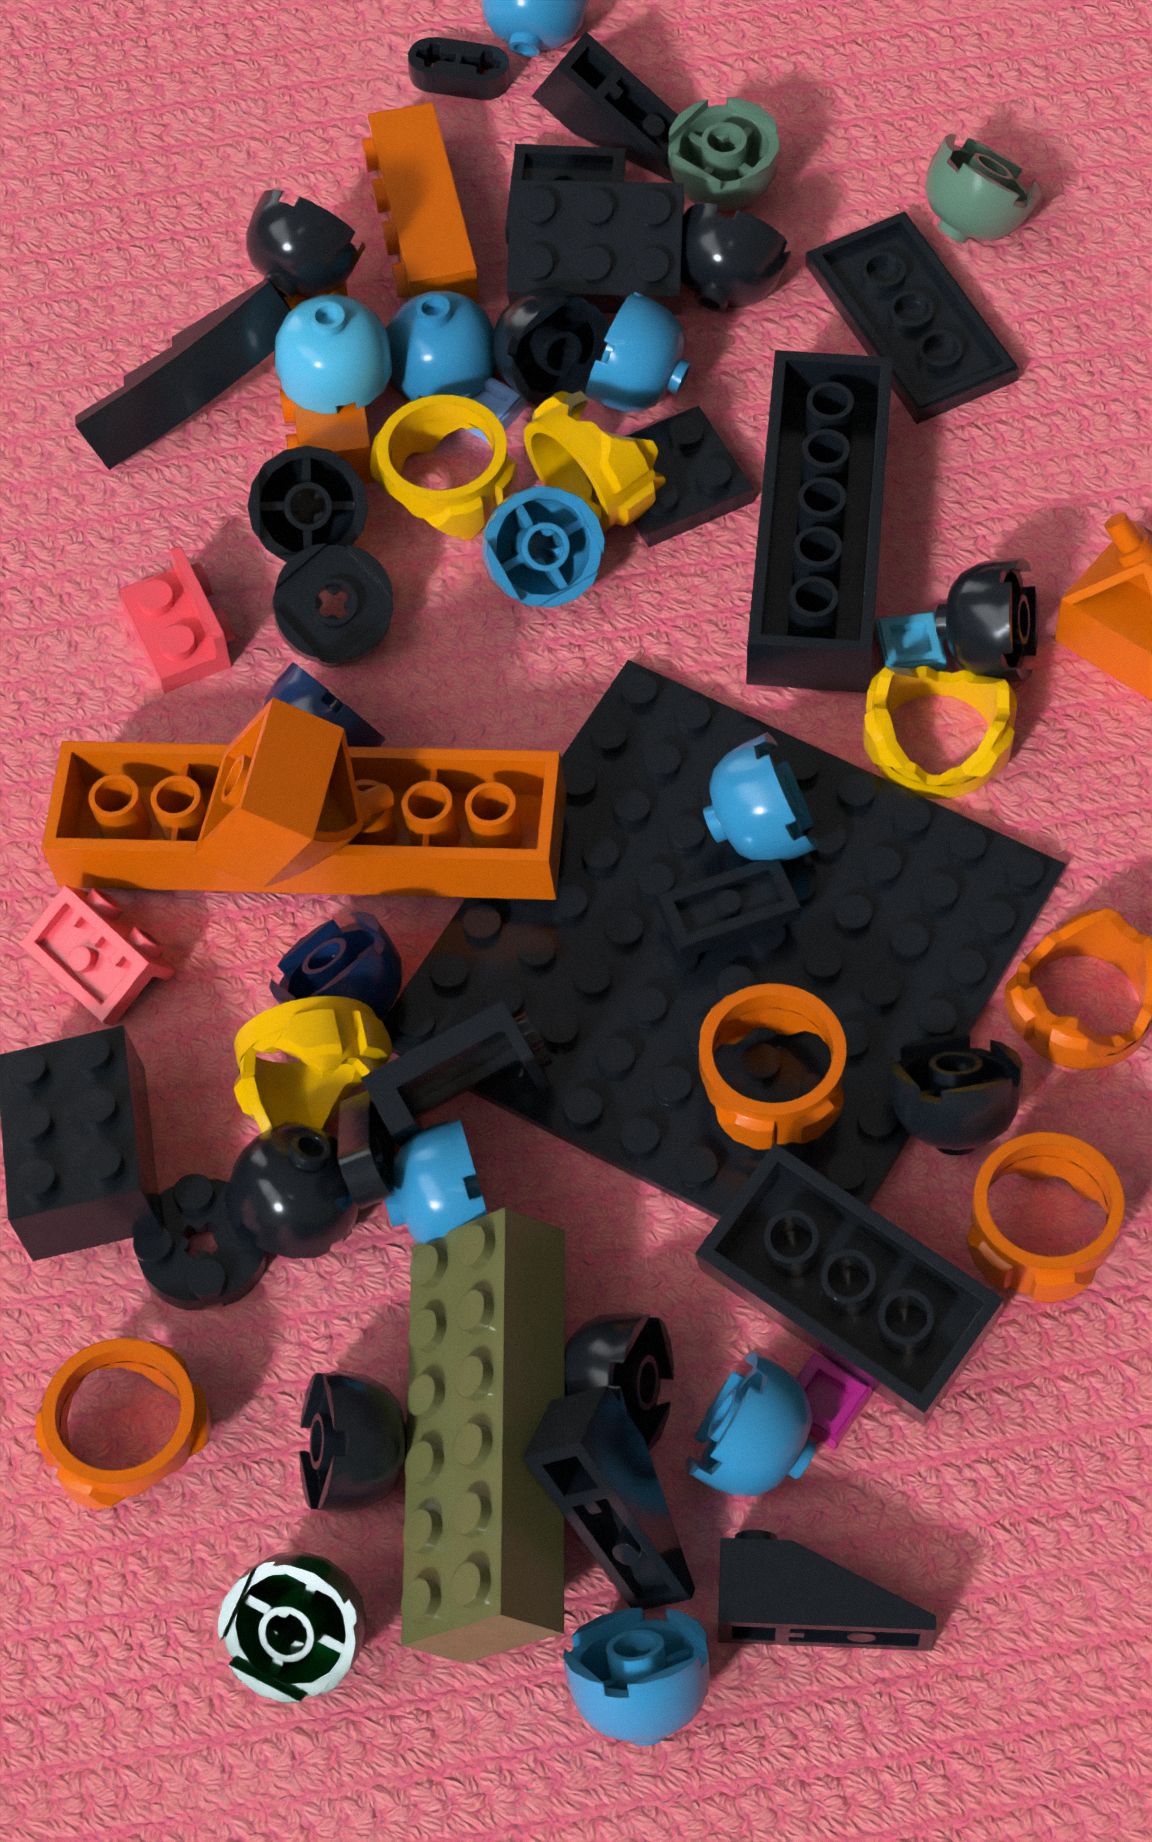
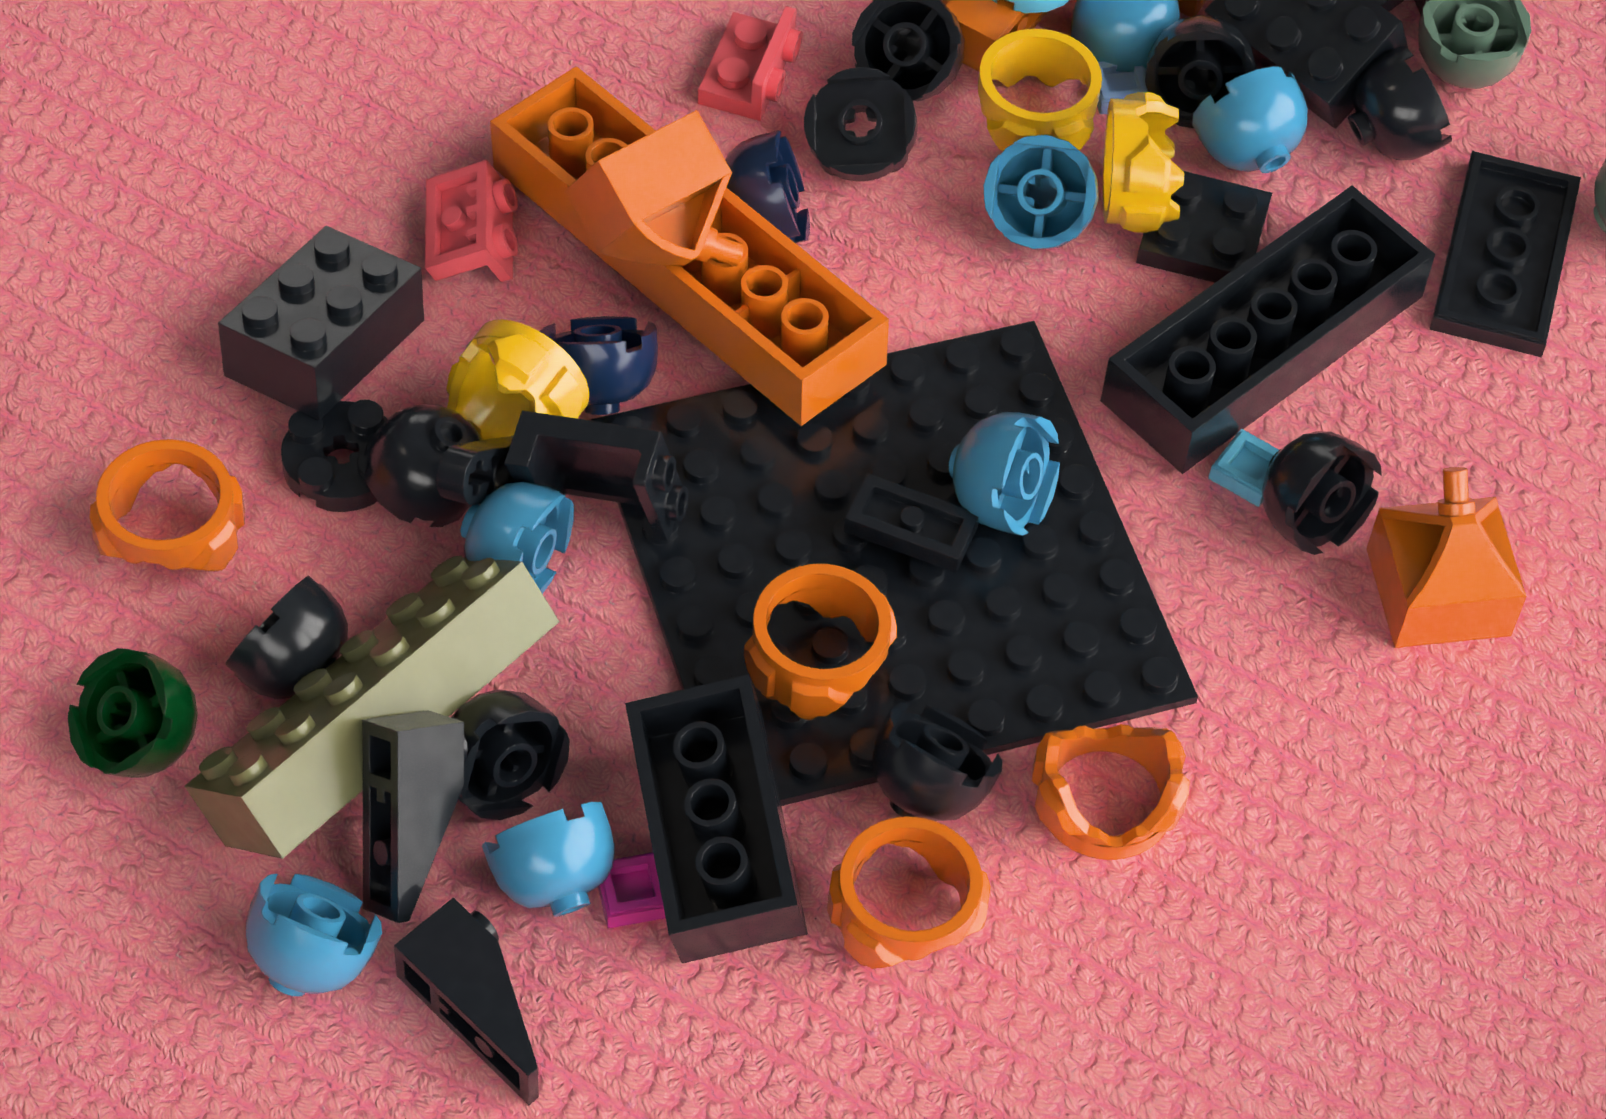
camera: 35 degrees right, 5 degrees down
(988, 695) = (1230, 571): yellow piece -> none

